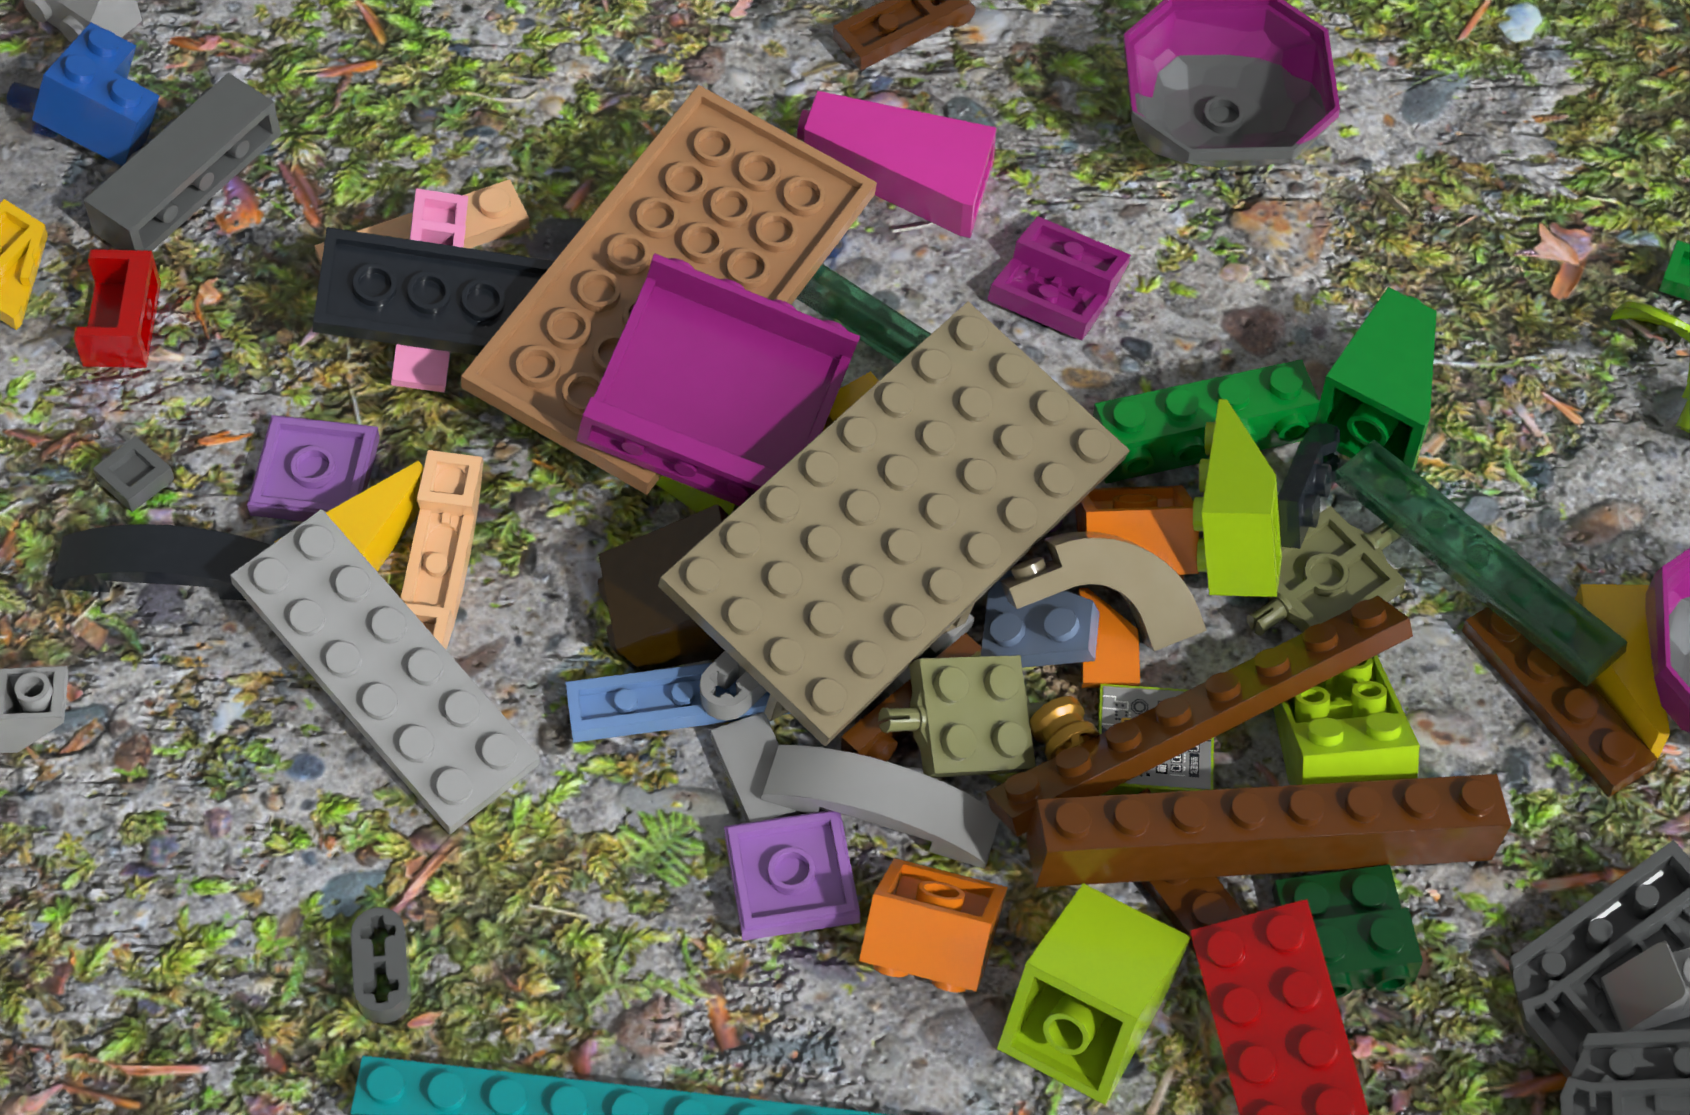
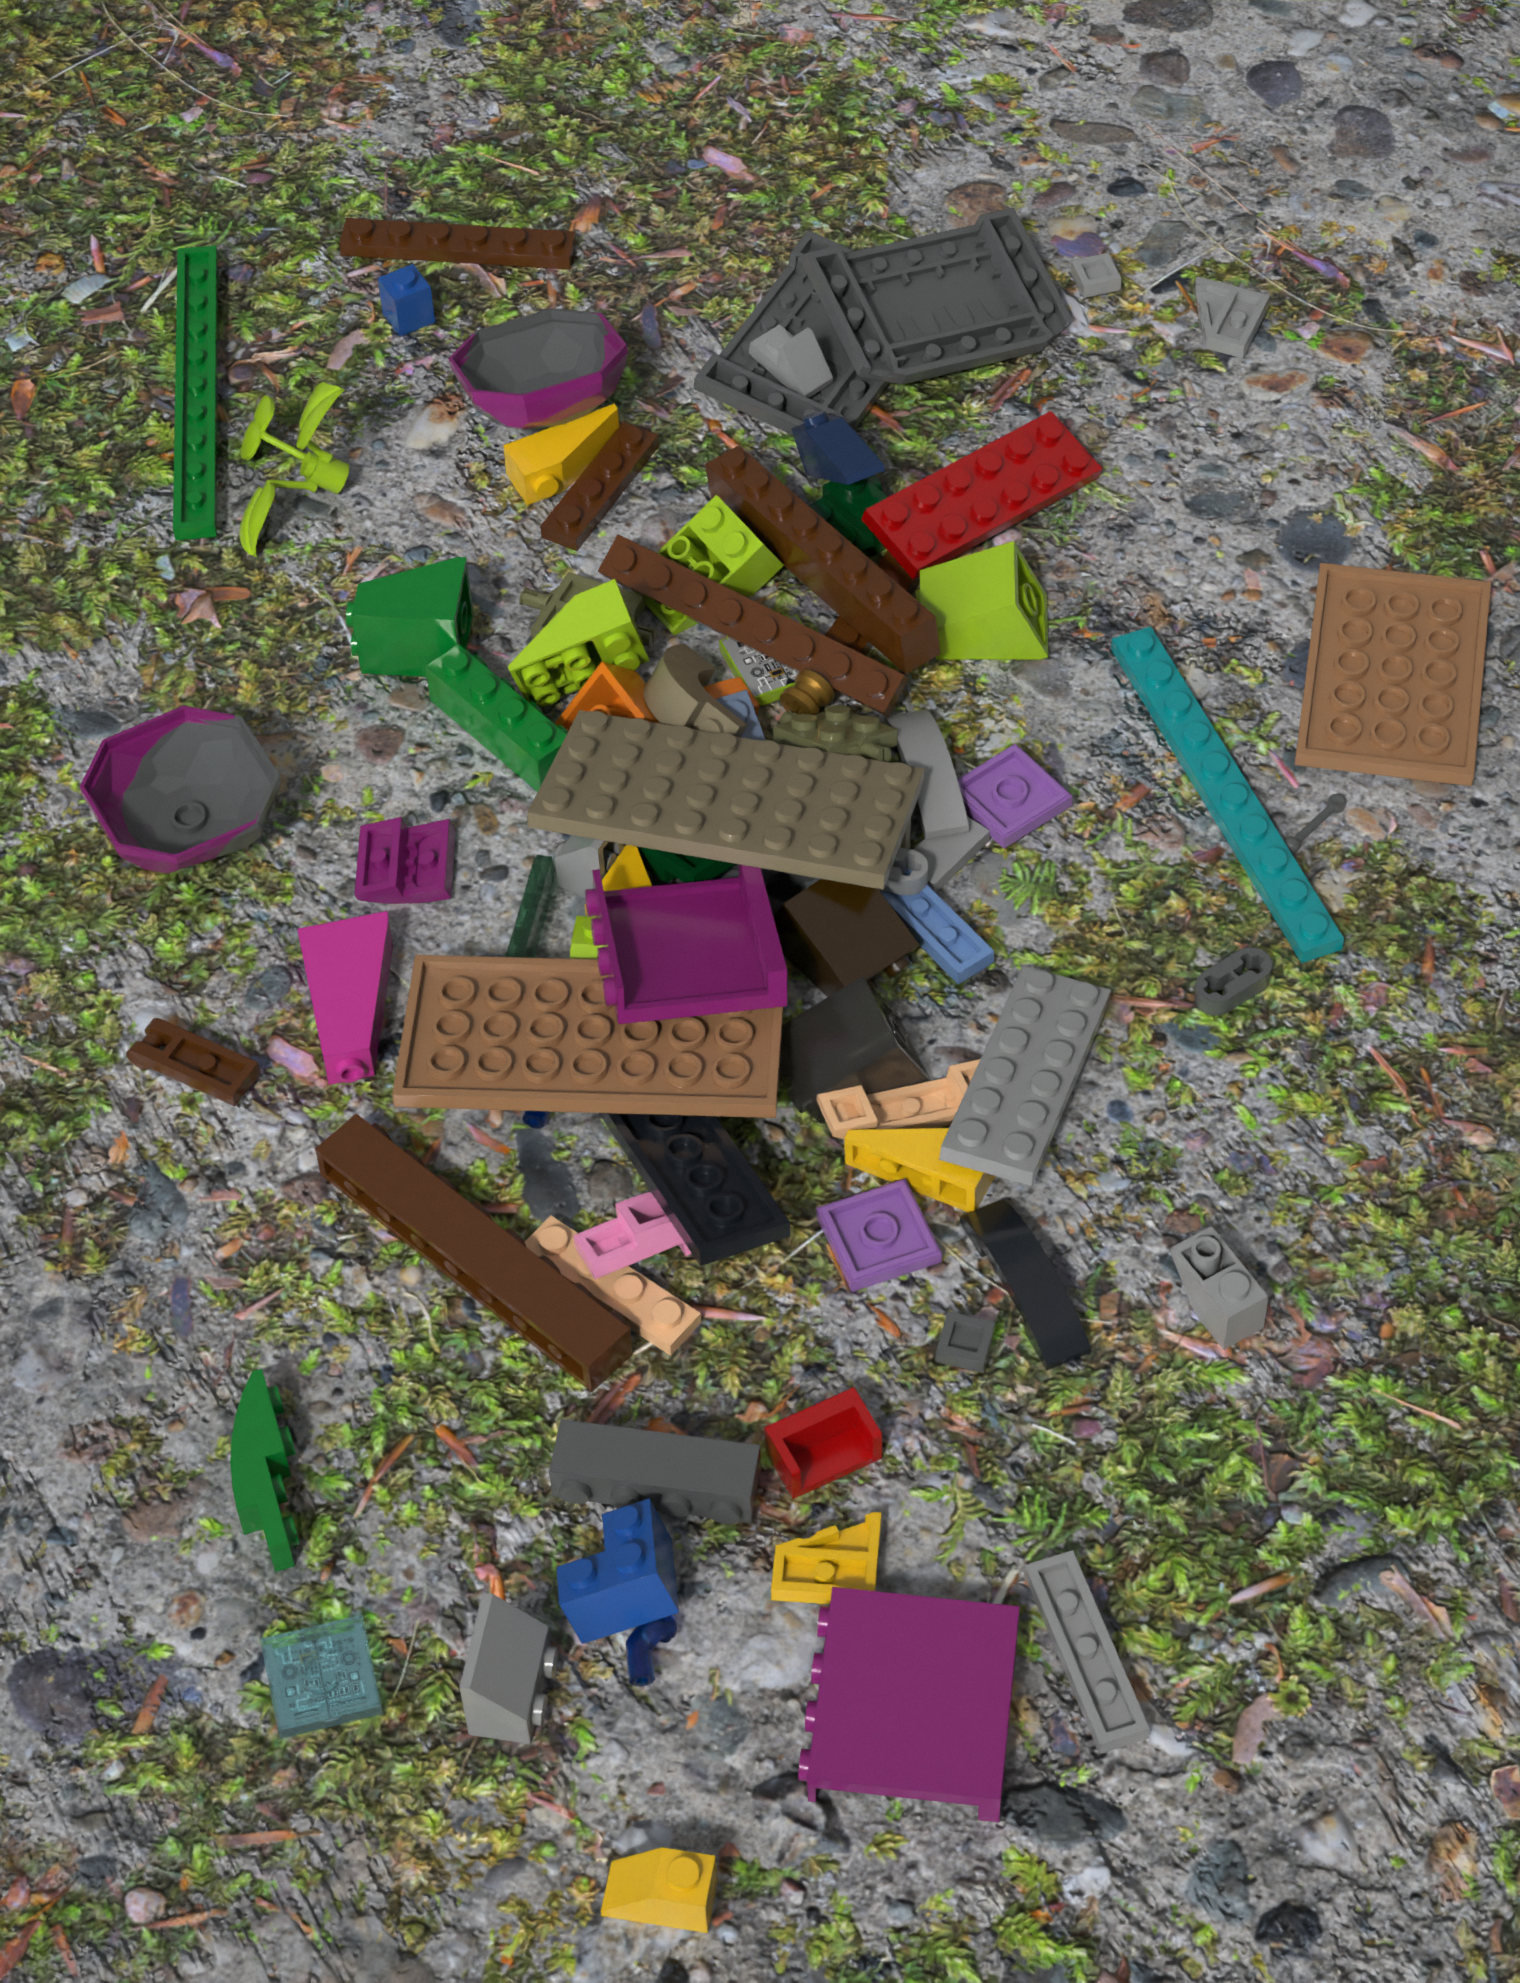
camera: 115 degrees left, 5 degrees down
(514, 138) = (476, 1252): none -> reddish brown brick
(525, 534) = (846, 1044): none -> clear smoke slope
(932, 925) = (992, 705): orange slope -> none
(1307, 482) = (505, 644): black hinge -> none
(1442, 931) = (834, 450): none -> dark blue slope
(1481, 563) = (536, 532): clear green tile -> none

